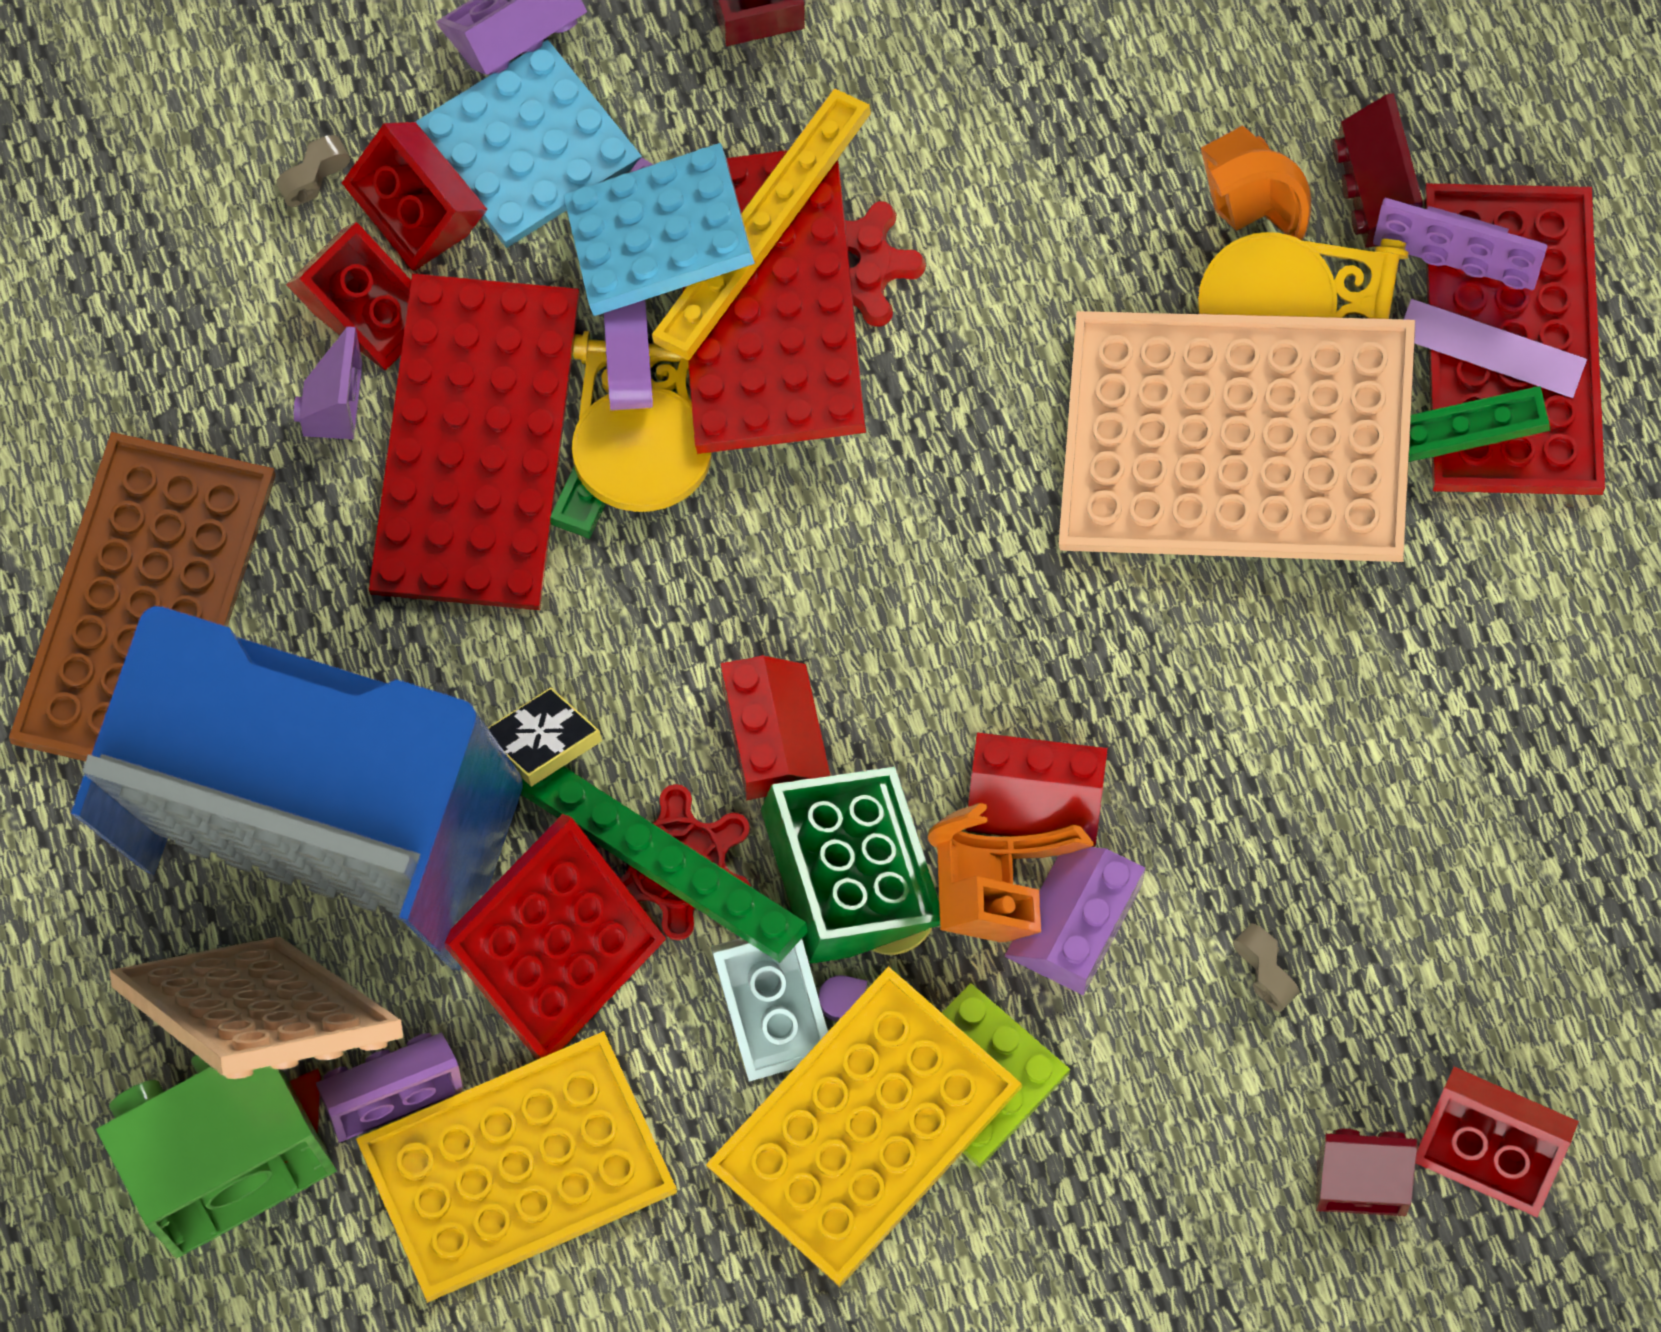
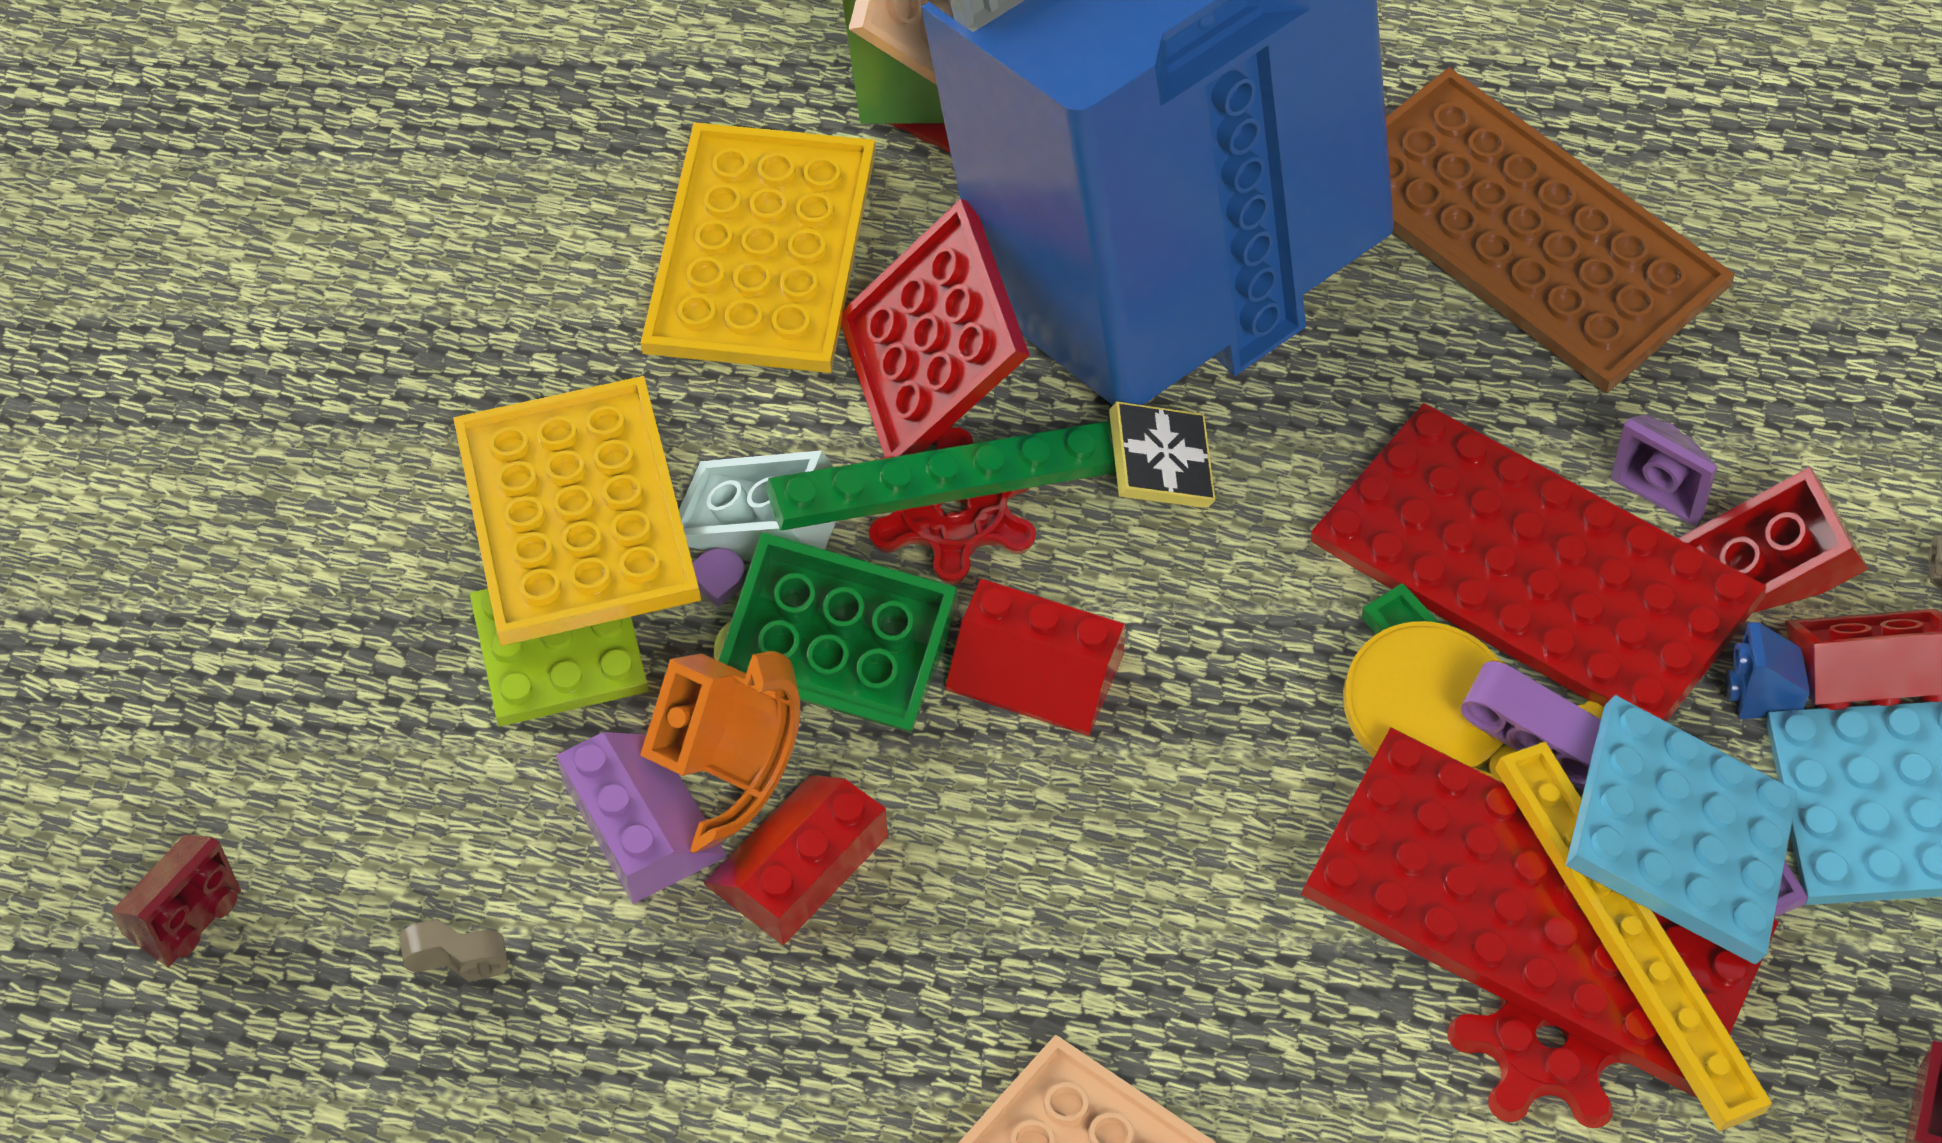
camera: 125 degrees right, 10 degrees down
(390, 1085) = (901, 174): medium lavender slope -> none
(486, 246) = (1766, 674): none -> blue slope
(1495, 1141) = (112, 1054): red slope -> none

